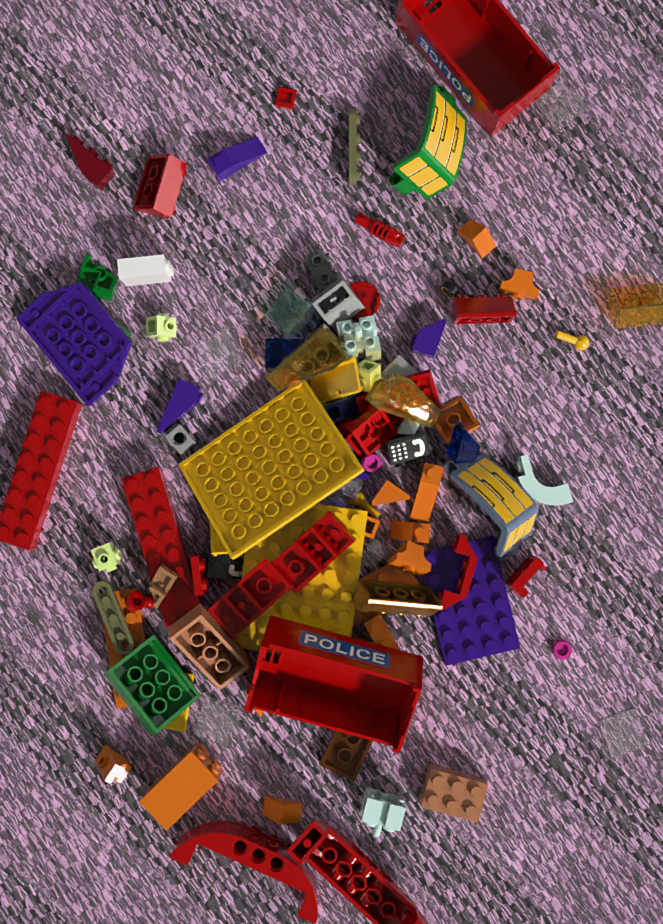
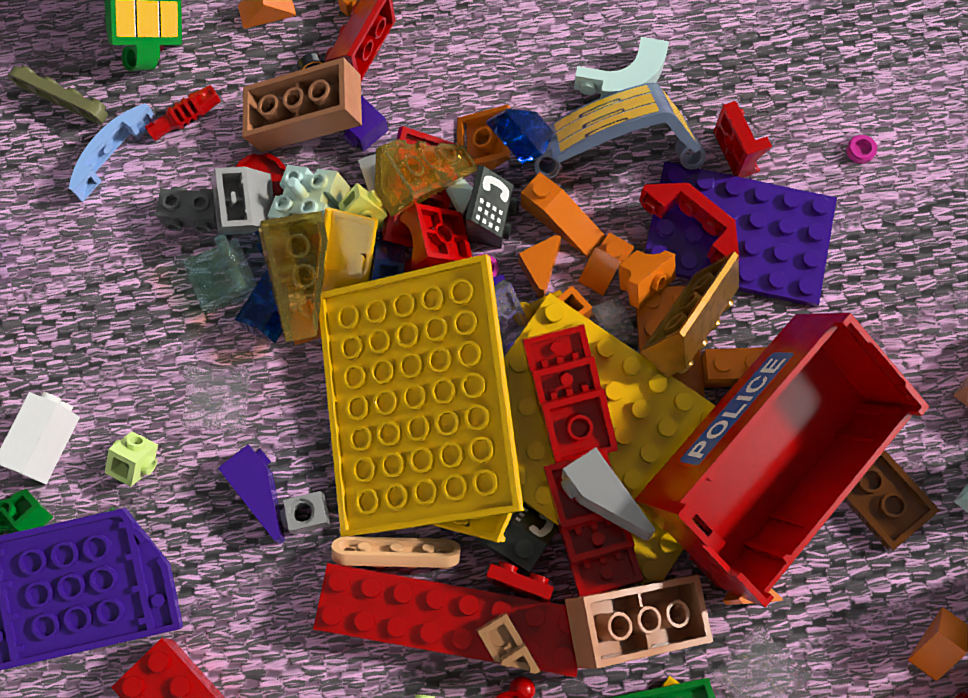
camera: 55 degrees left, 15 degrees down
(184, 498) = (395, 552): none -> light nougat plate
(264, 595) = (602, 492): none -> light grey slope
(308, 198) = (103, 146): none -> light blue slope
(415, 303) = (302, 105): none -> nougat brick

